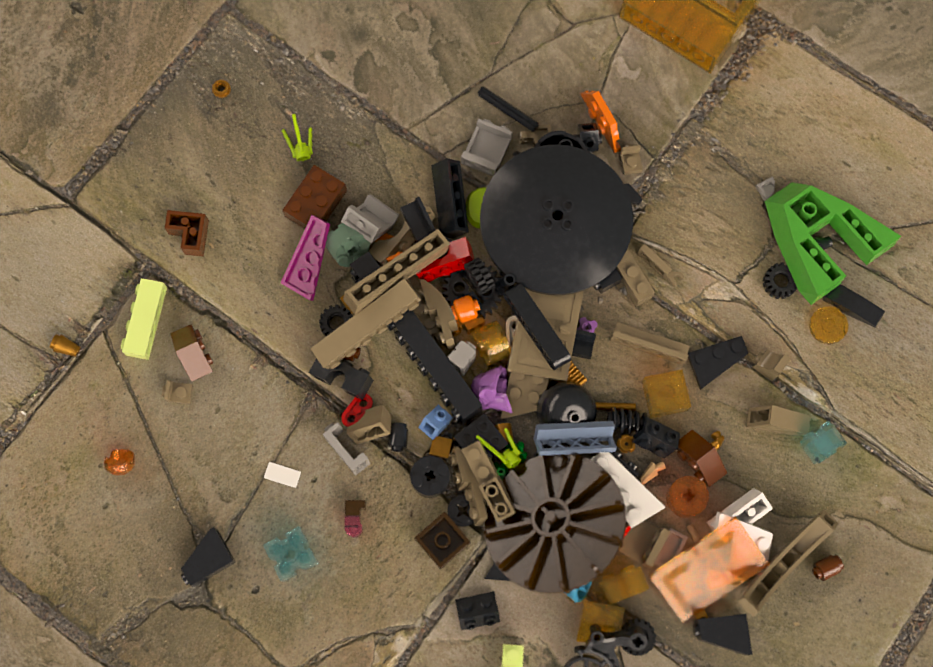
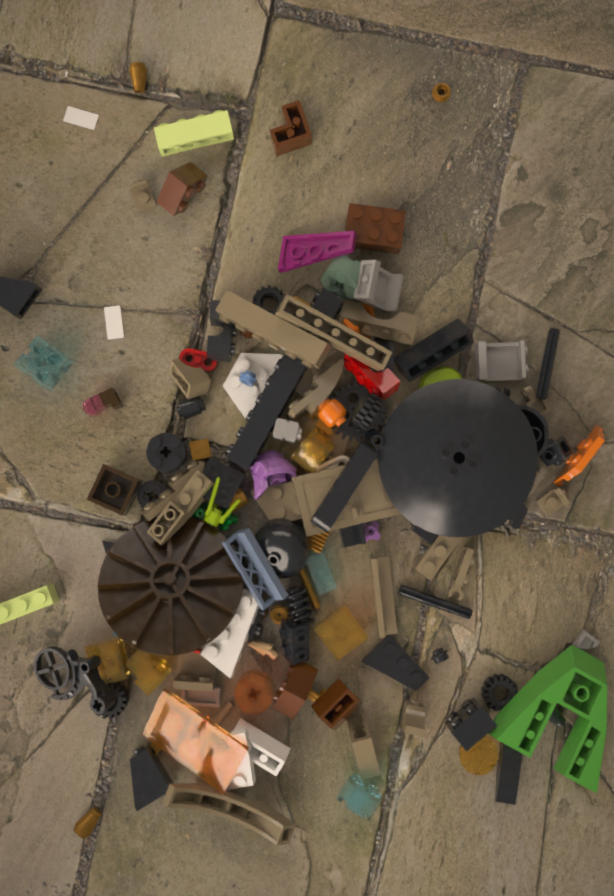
camera: 65 degrees right, 10 degrees up
(72, 418) = (80, 118): none -> white sticker
(120, 462) = (57, 176): clear orange hair -> none
(301, 151) = (415, 193): lime plant -> none
(355, 465) = (152, 363): light grey panel -> none
(397, 371) = (248, 378): none -> medium blue plate
(397, 372) = (262, 366): none -> white wing
(417, 219) = (395, 329): black panel -> none
(435, 422) = (218, 434): medium blue brick -> none
(477, 611) = (70, 548): black bracket -> none
(606, 388) = (321, 573): none -> clear light blue plate
(675, 300) = (435, 601): none -> black axle
(725, 317) = (439, 655): none -> black plate
(730, 425) = (336, 704): none -> reddish brown slope
(796, 316) = (469, 723): none -> black brick
(827, 567) = (248, 846): reddish brown brick -> none

